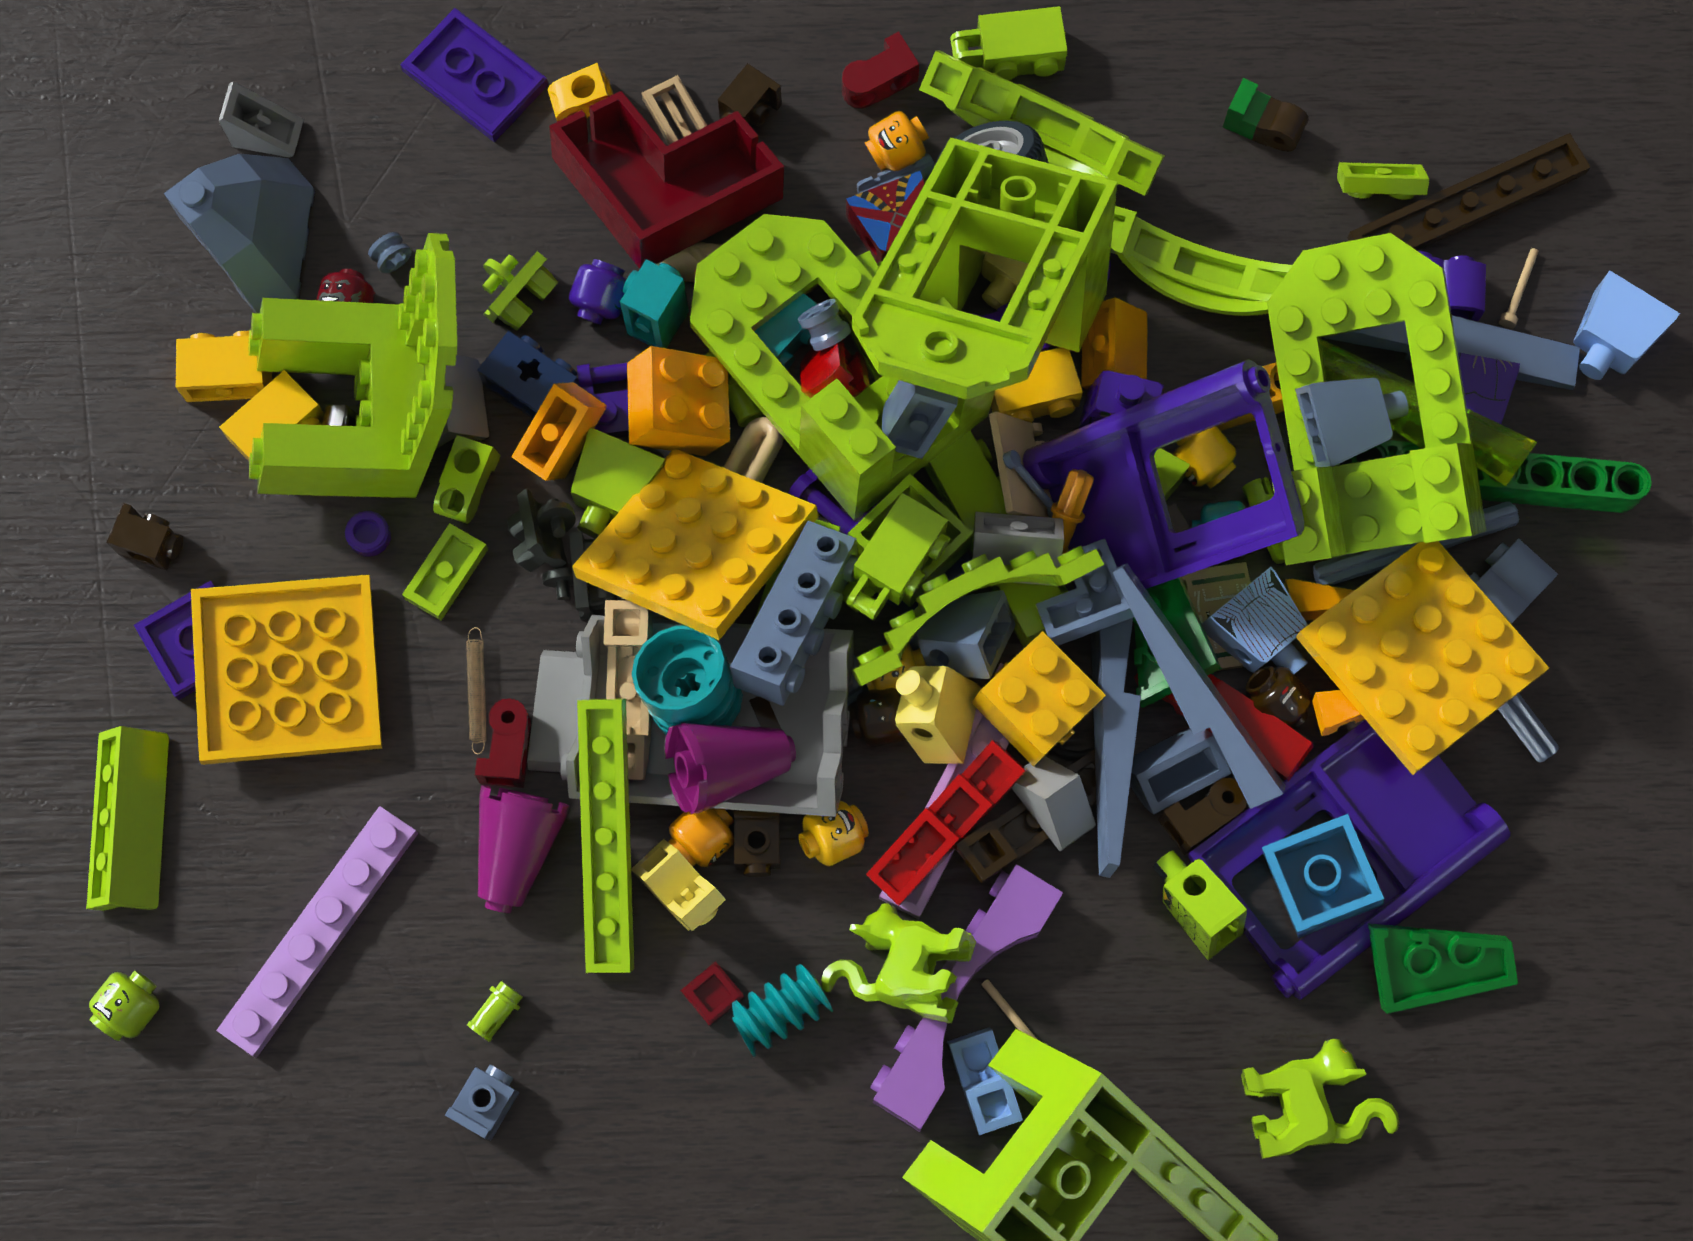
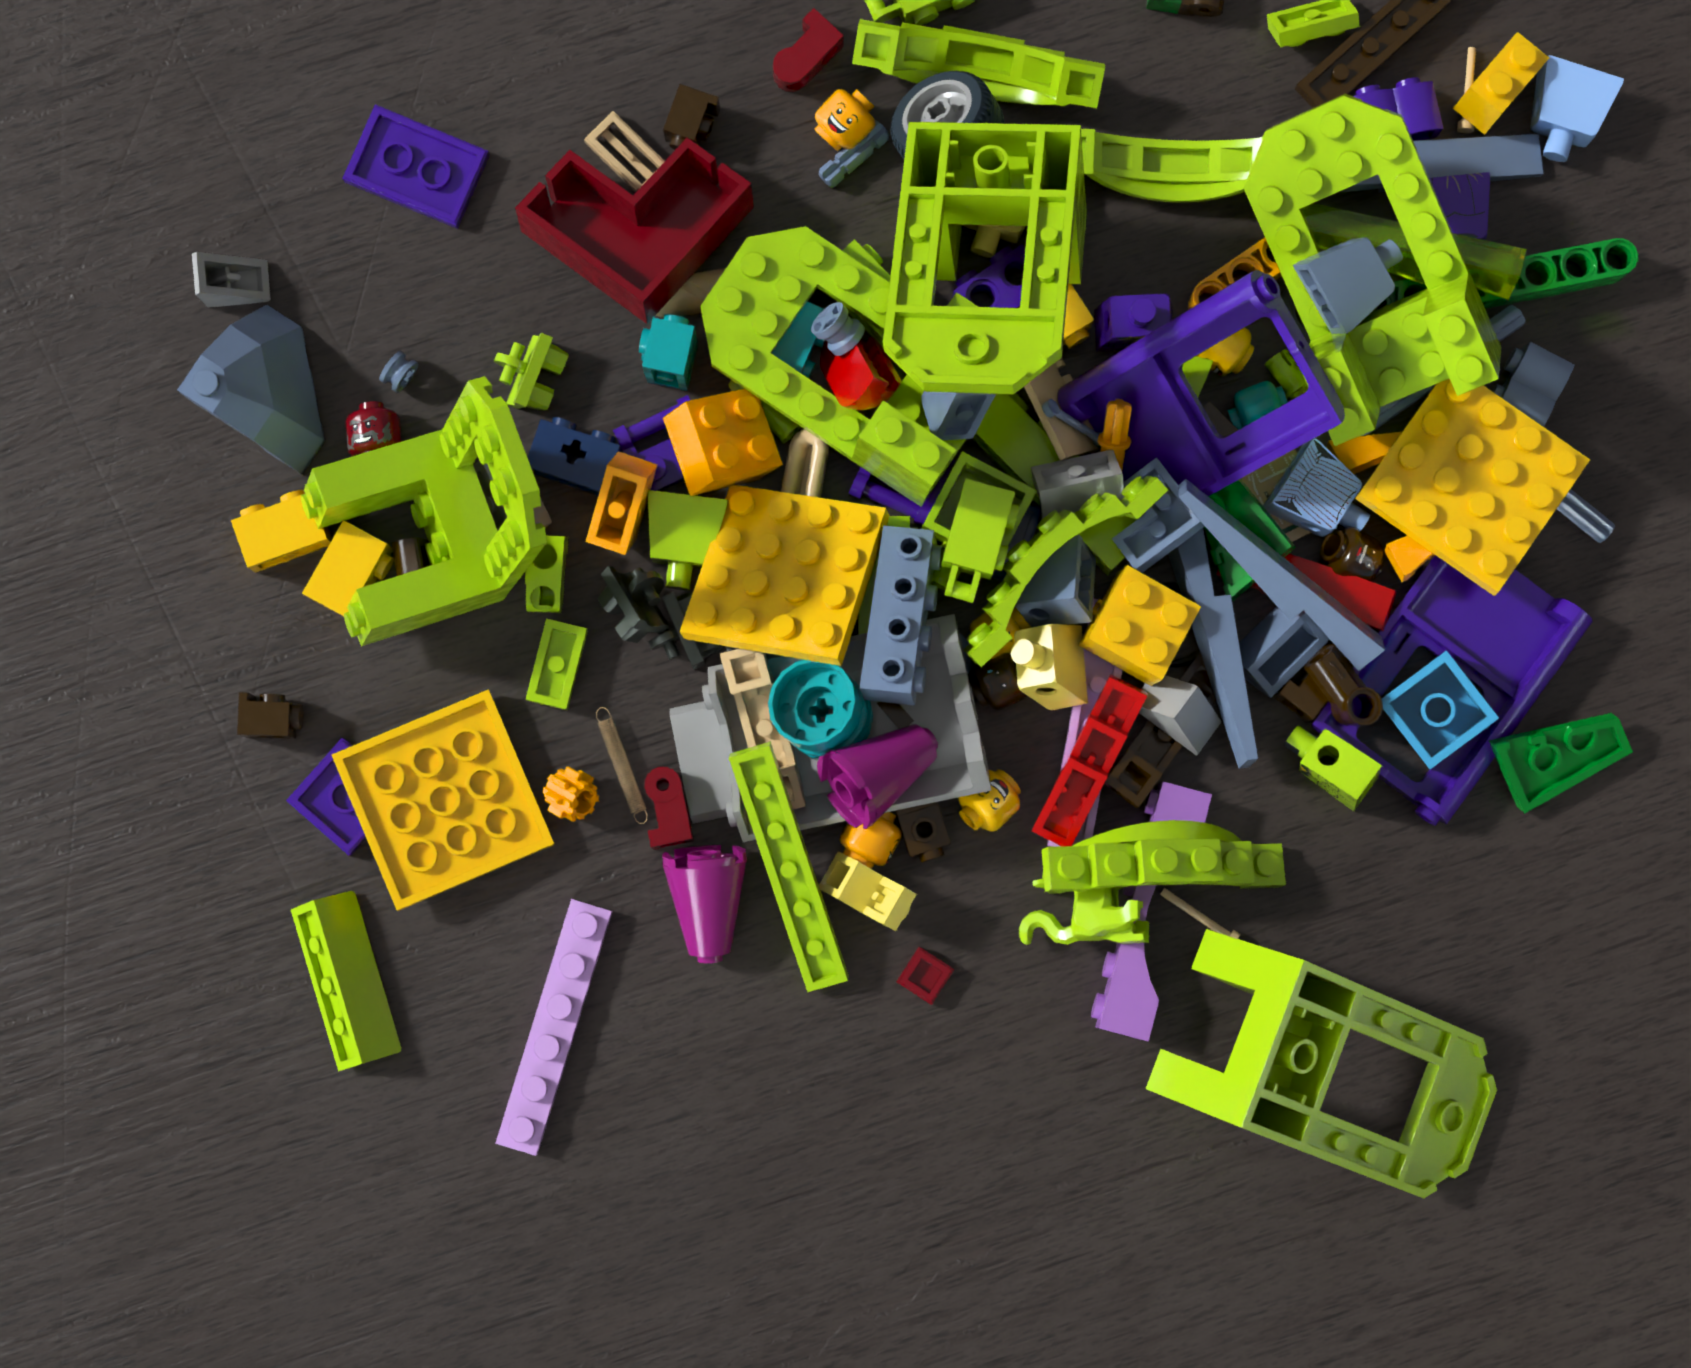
camera: 20 degrees left, 10 degrees up
(124, 1005) = (405, 1146): lime head -> none
(368, 533) = (471, 648): dark purple tile -> none
(414, 700) = (570, 794): none -> light orange gear
(485, 1119) = (751, 1150): sand blue brick -> none
(495, 1010) = (737, 1050): lime pin -> none
(579, 91) = (528, 160): yellow leg -> none
(598, 291) = (610, 352): dark purple head -> none
(779, 1008) = (990, 972): teal piece -> none
(882, 211) = (864, 199): torso -> none
(987, 1094) = (1196, 992): light blue slope -> none
(994, 935) = (1163, 855): none -> lime piece
(1115, 342) = (1110, 261): light orange panel -> none
(1226, 819) = (1341, 685): none -> dark brown piece
(1304, 1104) = (1474, 916): lime animal -> none
(1554, 285) = (1500, 83): none -> yellow brick

